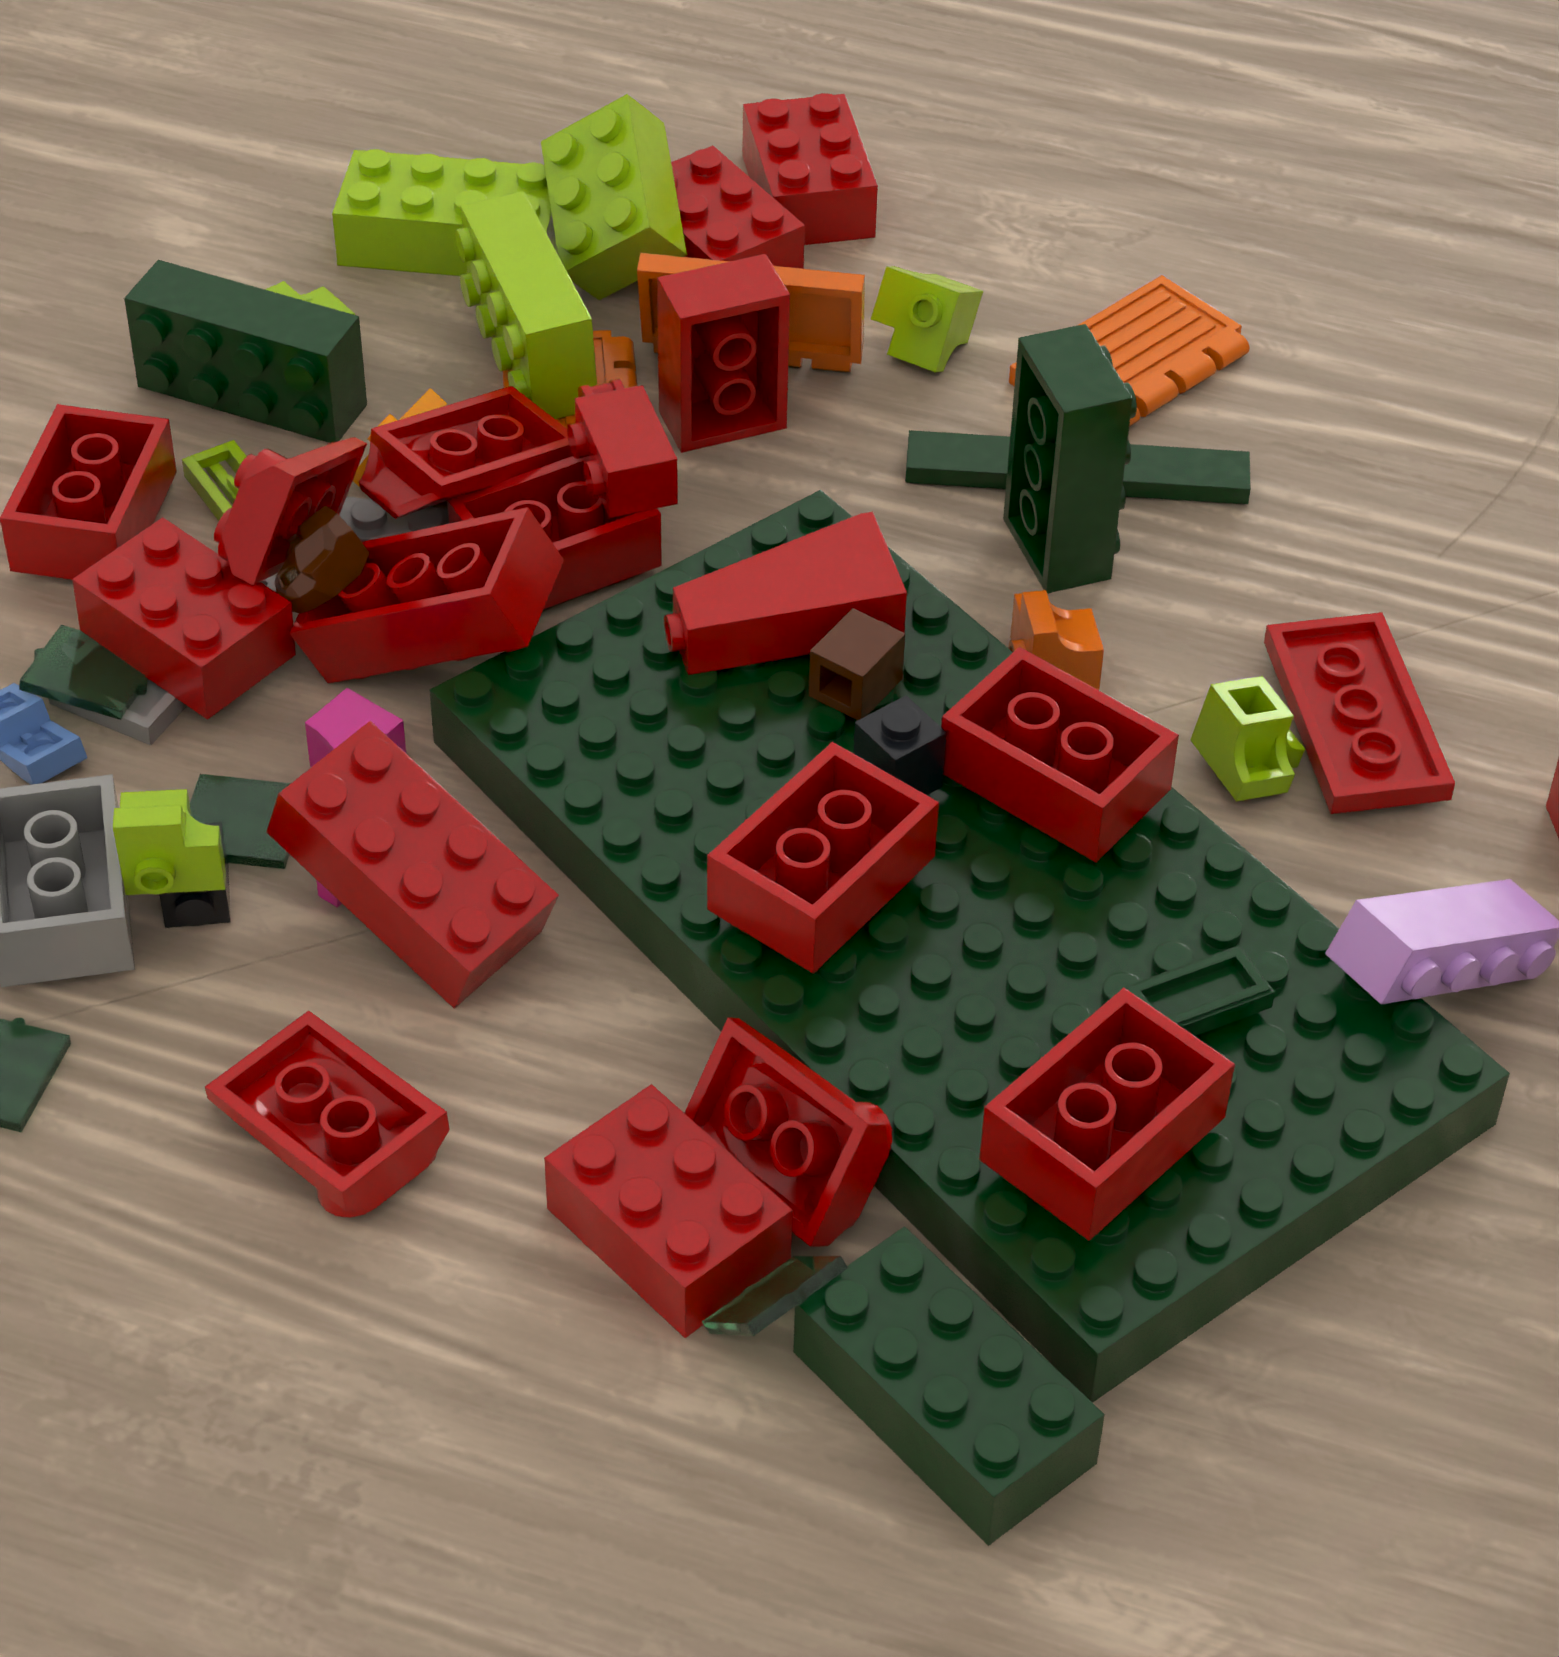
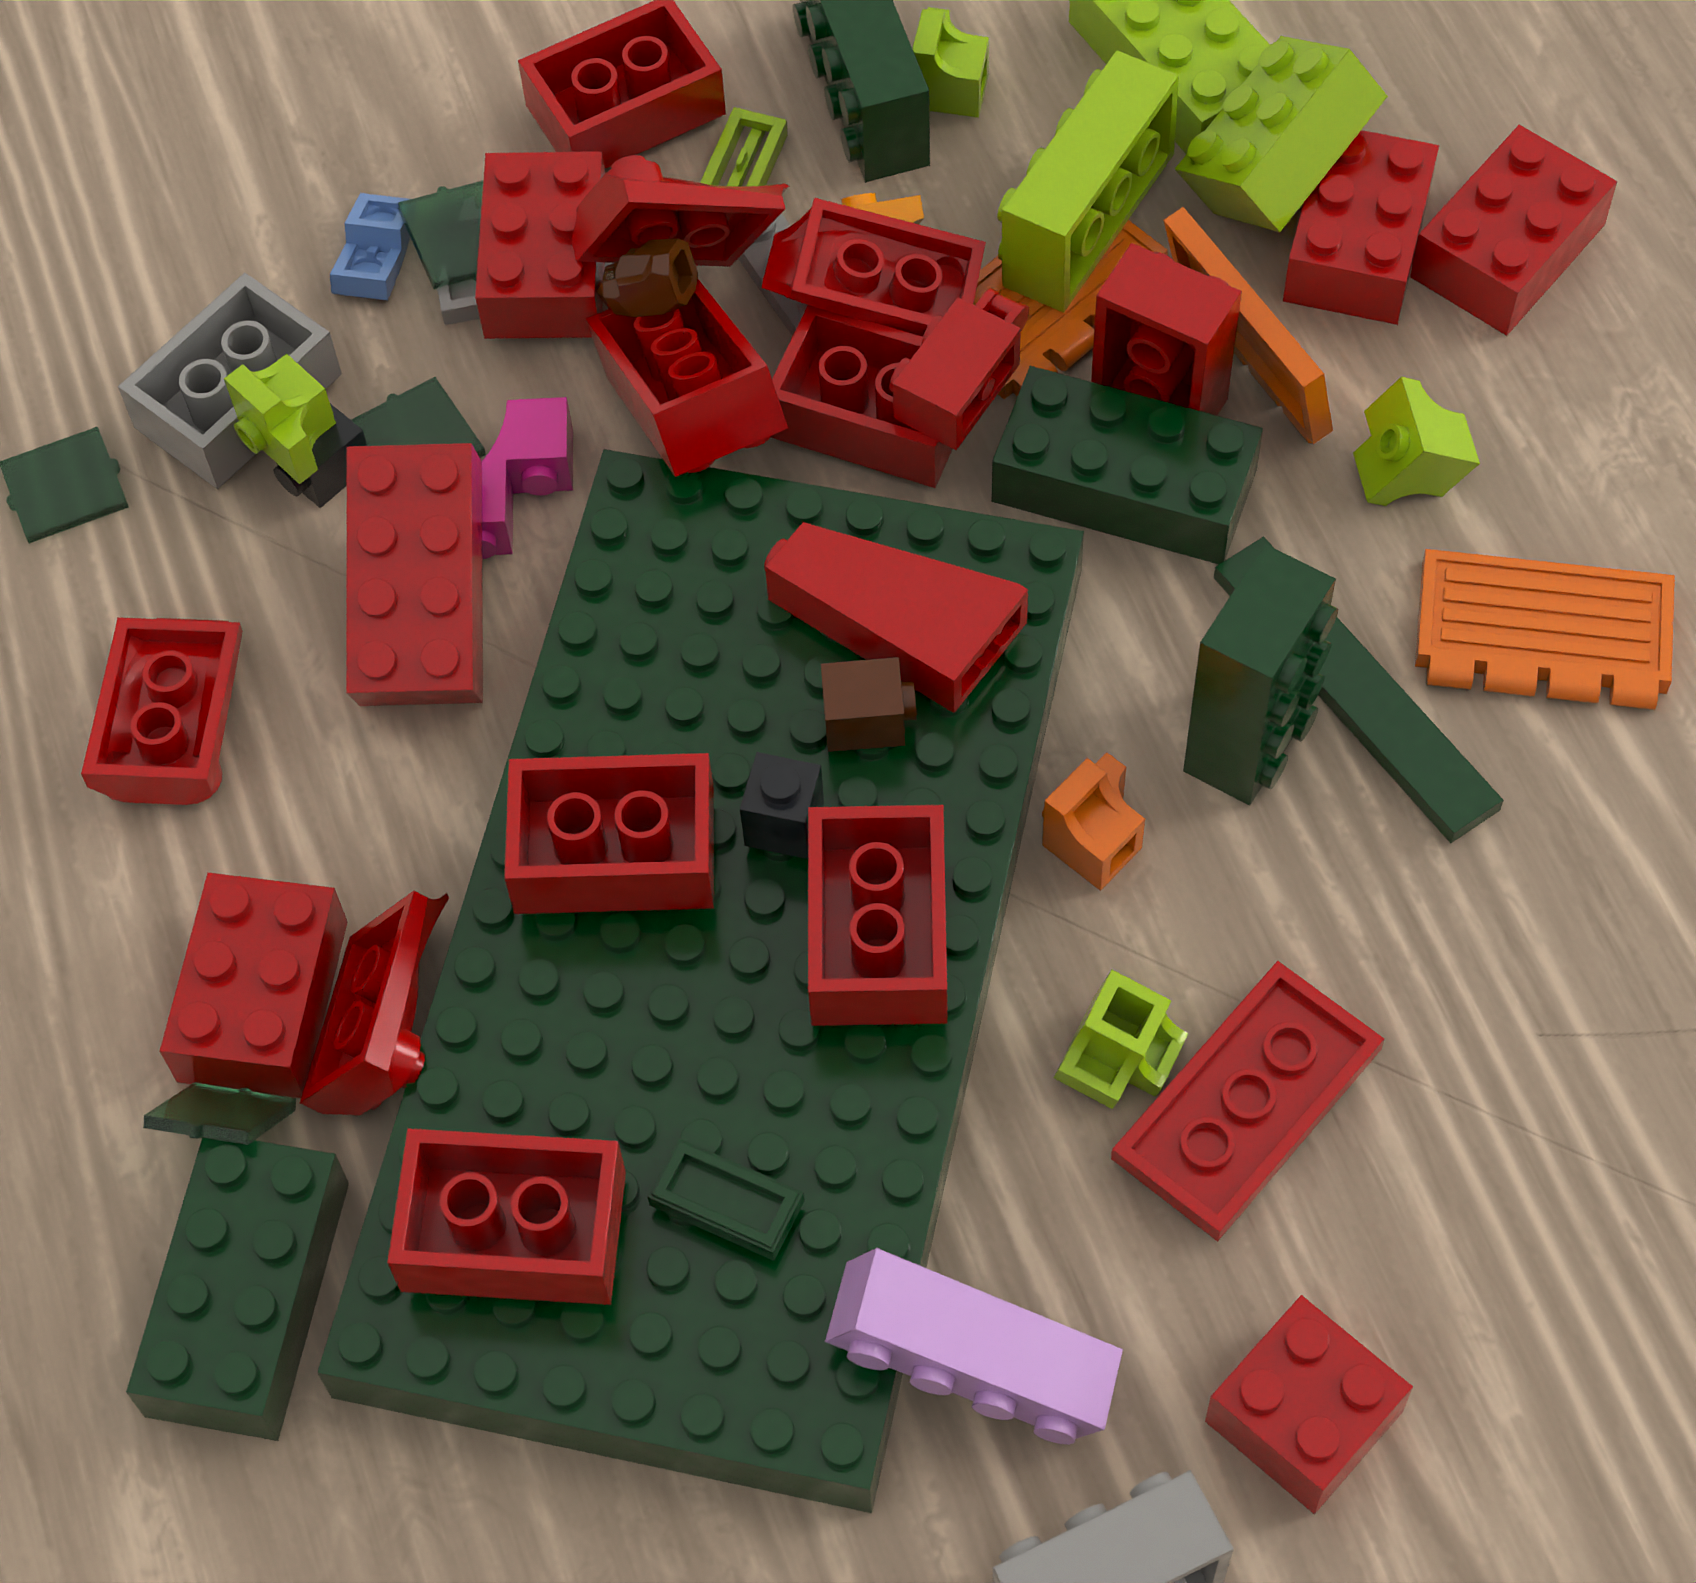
camera: 55 degrees right, 15 degrees up
(779, 447) = (1126, 465): none -> dark green brick

